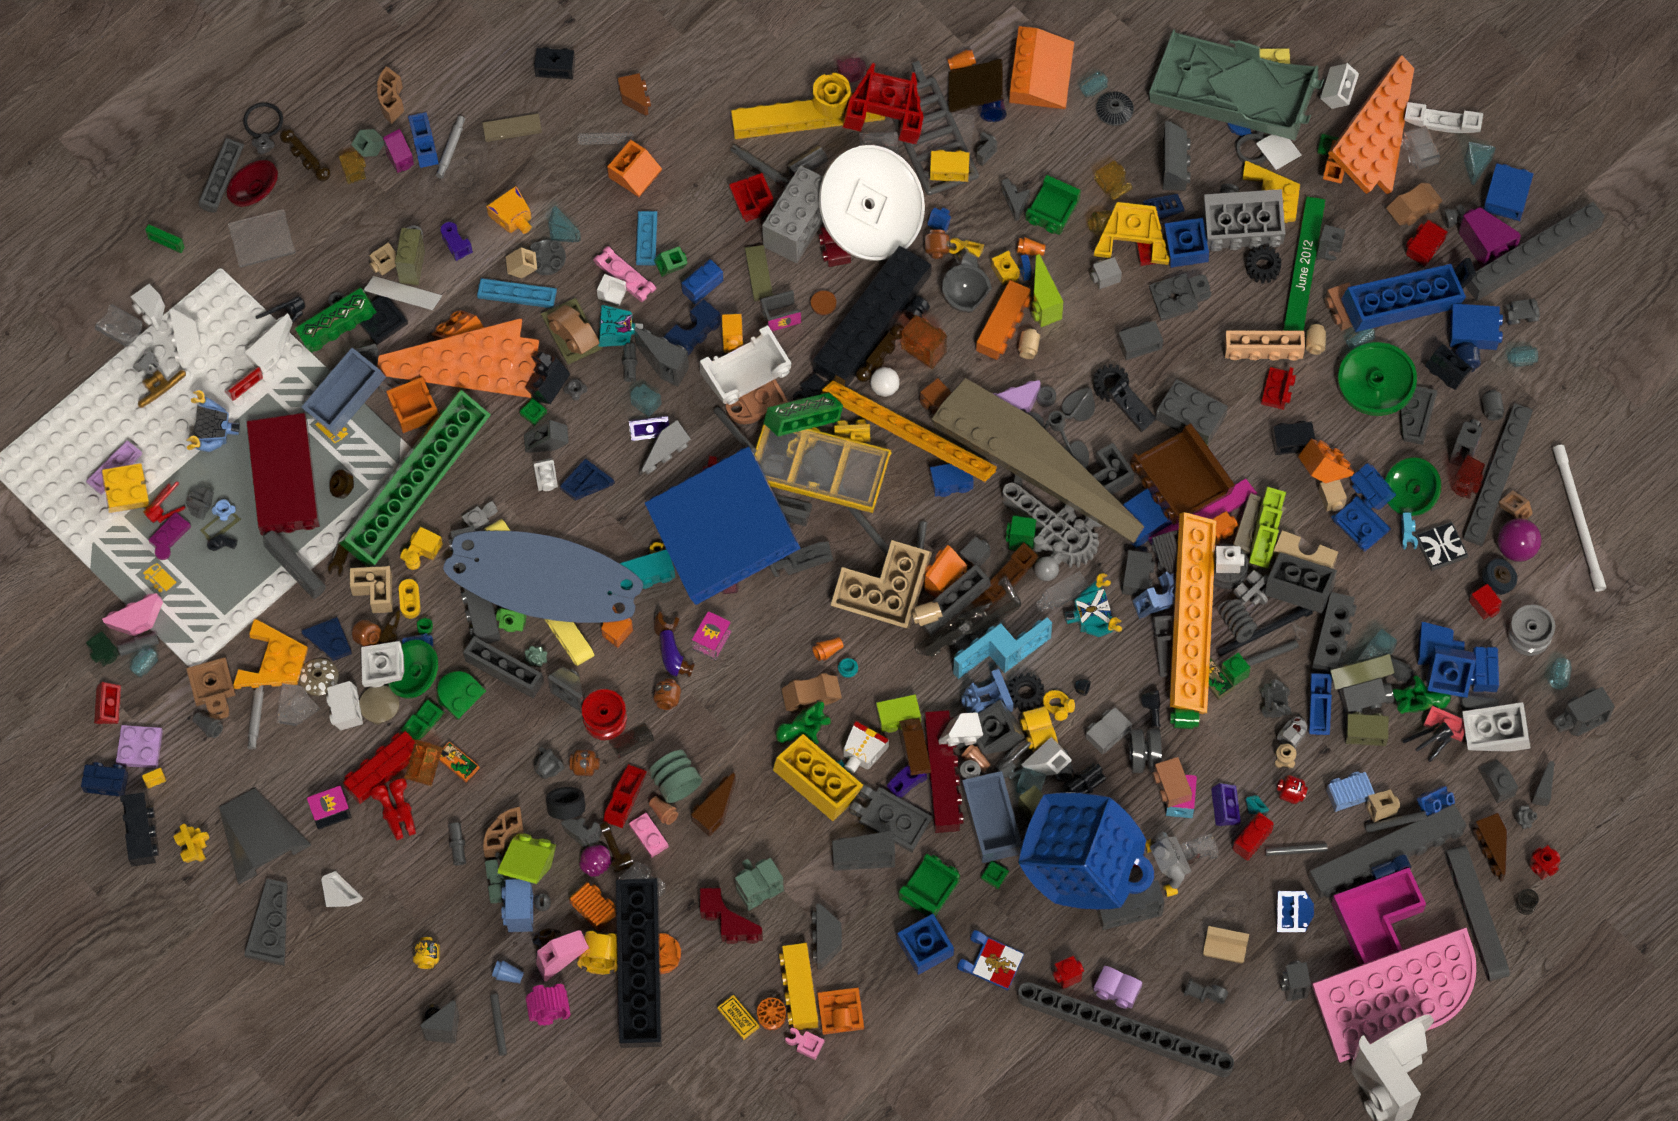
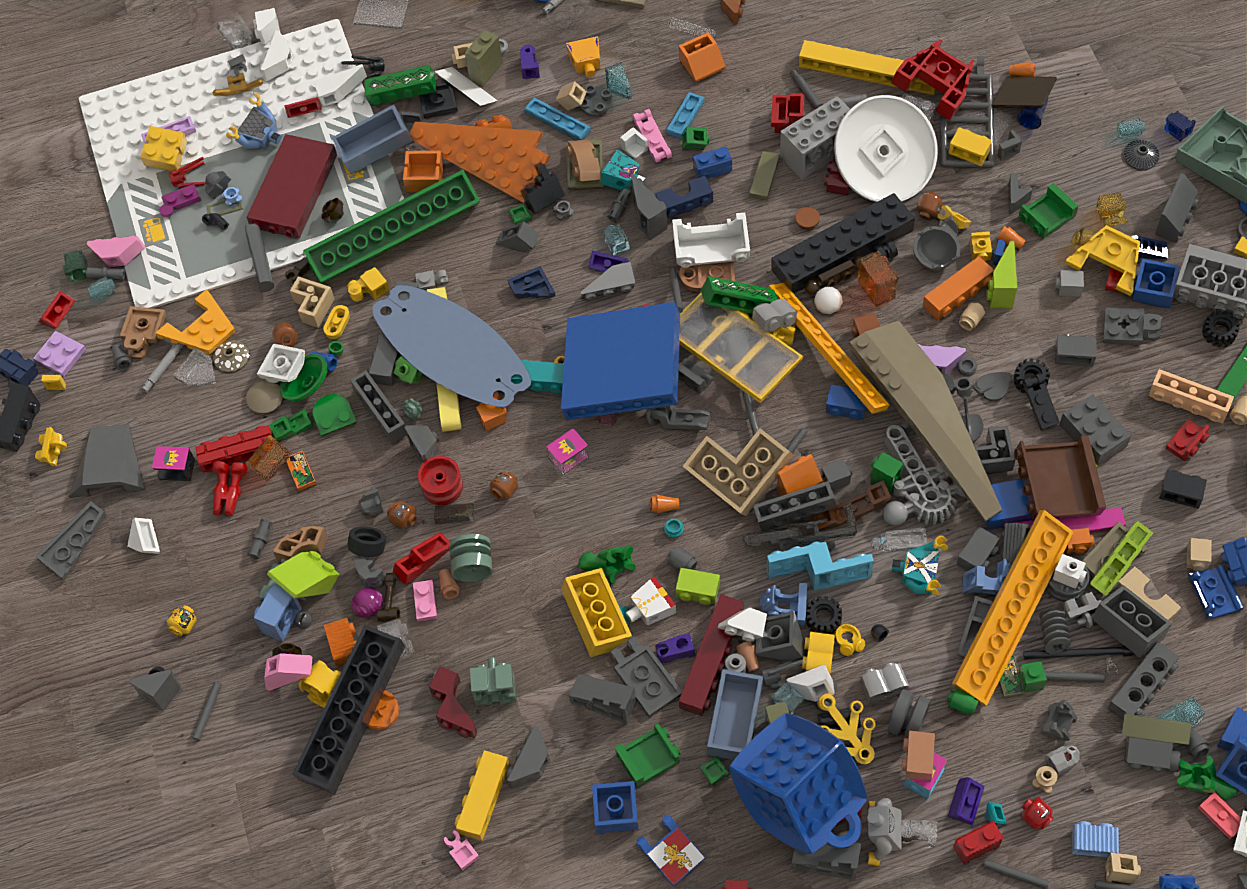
camera: 30 degrees right, 5 degrees down
(329, 639) = (256, 329): dark blue wing -> none
(344, 705) = (234, 386): white brick -> none
(389, 634) = (305, 341): dark brown plate -> none
(507, 972) = (238, 667): medium blue cone -> none
(545, 474) = (499, 263): white slope -> none
(547, 1004) = (253, 710): dark pink brick -> none
(671, 657) = (523, 457): piece -> none
(713, 810) = (491, 602): reddish brown slope -> none
(732, 332) = (715, 209): light orange brick -> none
(738, 1017) = (415, 799): yellow tile -> none
(771, 1014) = (444, 809): orange wheel -> none
(776, 302) = (767, 202): dark grey piece -> none
(805, 693) = (623, 533): medium nougat brick -> none
(811, 387) = (762, 280): black plate -> none
(831, 95) = (892, 52): yellow brick -> none
(840, 1011) = (508, 835): orange plate -> none
(845, 420) = (774, 315): none -> light grey brick
(852, 69) = (921, 42): clear pink brick -> none
(871, 694) = (682, 559): none -> dark grey brick
(914, 746) = (694, 620): reddish brown slope -> none
(927, 613) = (762, 506): tan brick -> none
(939, 219) = (941, 186): blue tile -> none
(1041, 69) = (1088, 99): orange slope -> none
(1099, 786) = (849, 731): none -> yellow plant
(1138, 64) = (1179, 125): none -> clear blue brick
(1151, 701) = (939, 674): black bar -> none
(1320, 704) = (1101, 743): blue slope -> none
(1324, 462) = (1203, 521): orange slope -> none
(1367, 729) = (1138, 787): olive brick -> none
(1441, 732) = (1212, 822): black plant -> none

